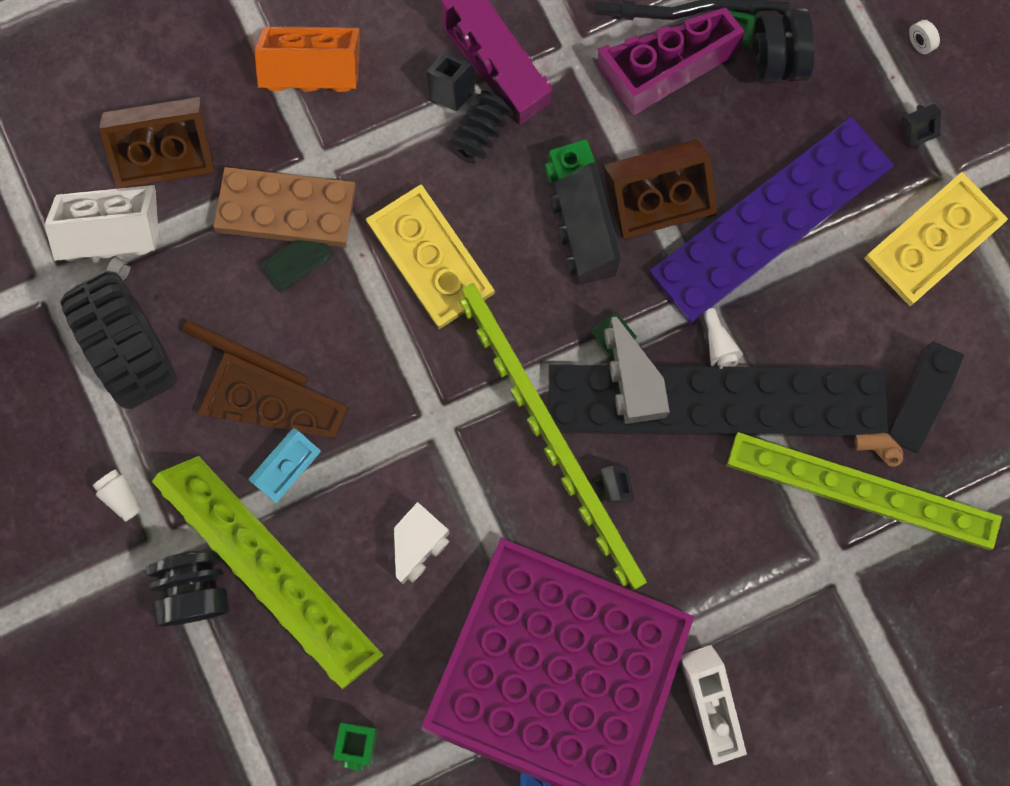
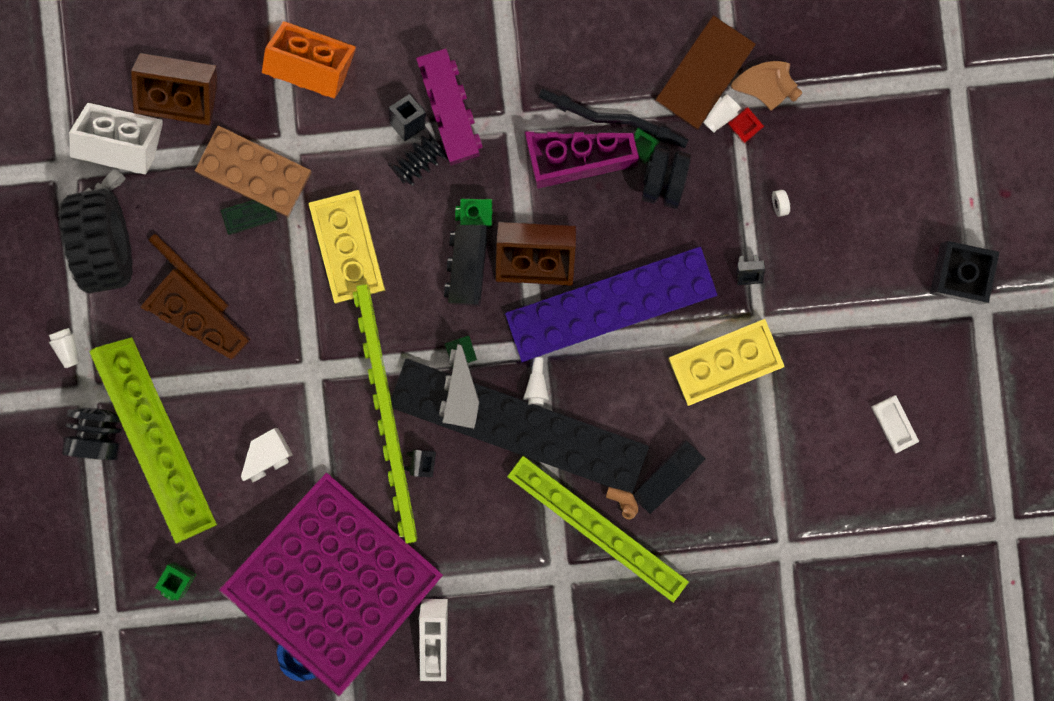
camera: 25 degrees right, 10 degrees up
(284, 465) = (190, 367): medium azure plate -> none

